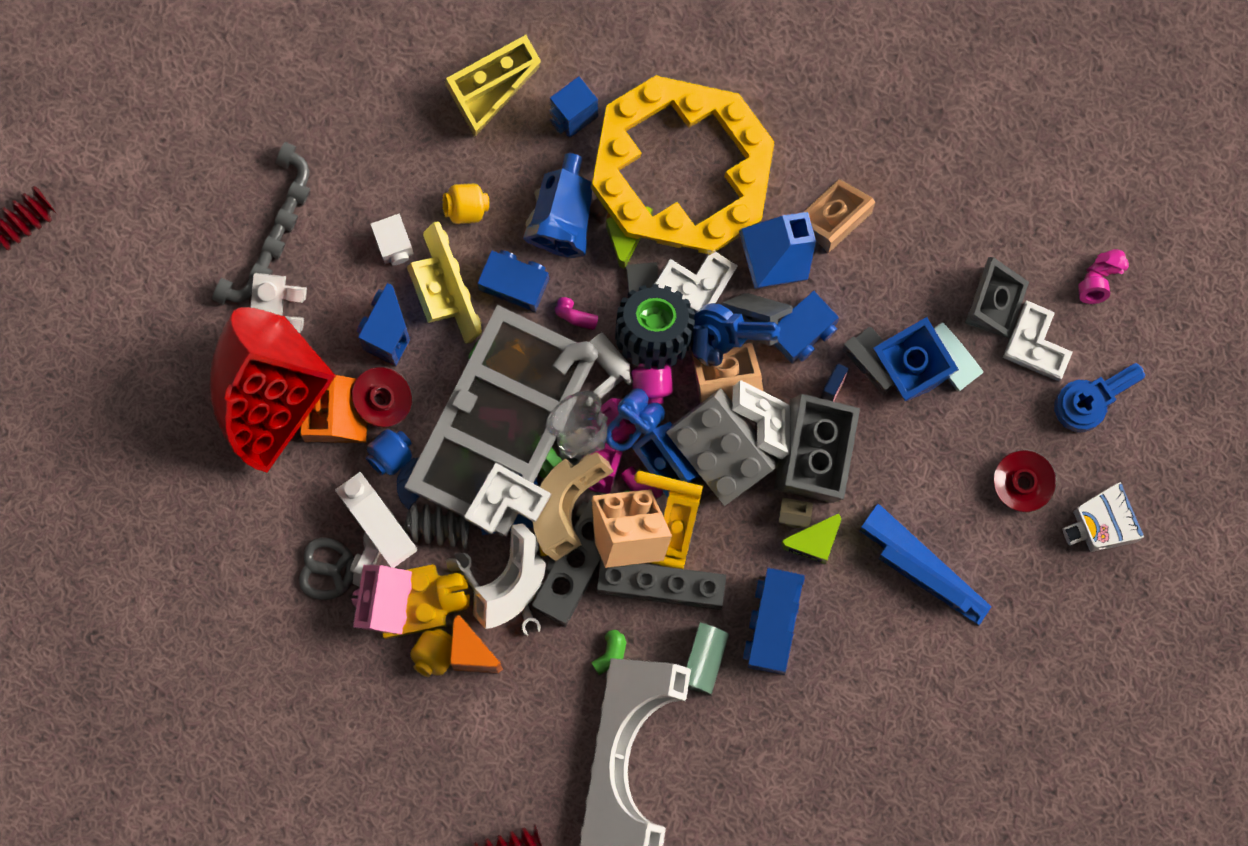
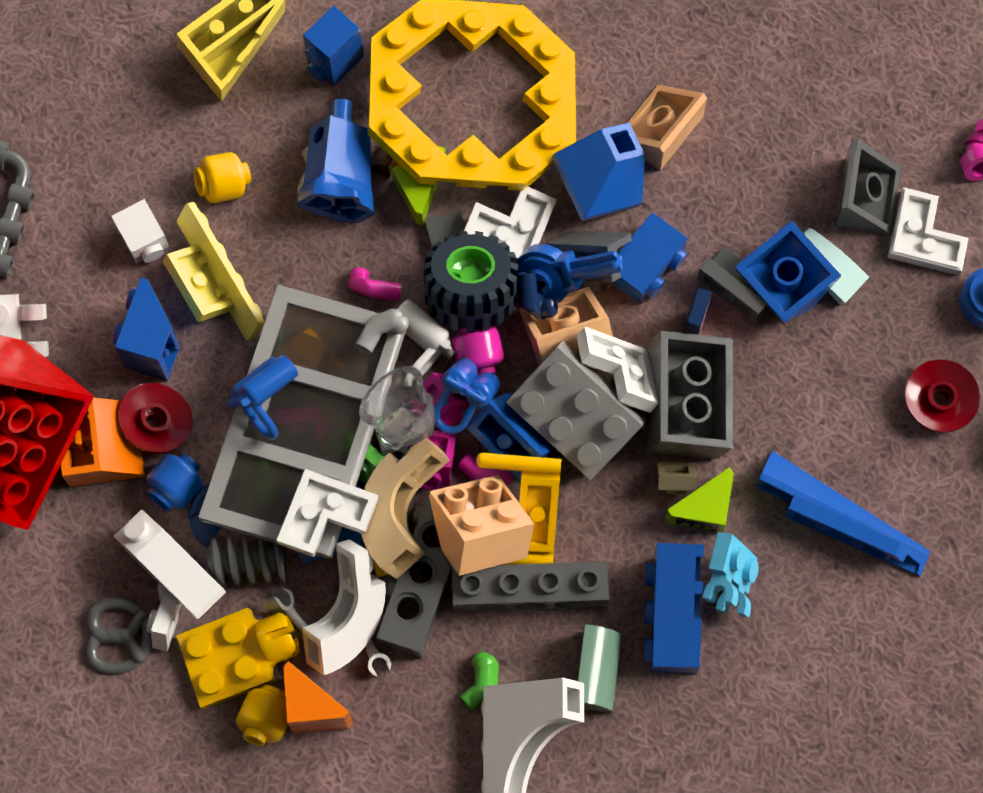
camera: 10 degrees left, 5 degrees down
(382, 599) = (191, 658): bright pink brick -> none
(469, 390) = (258, 388): none -> blue piece
(514, 280) = (293, 257): blue brick -> none
(826, 599) = (733, 571): none -> medium azure plate

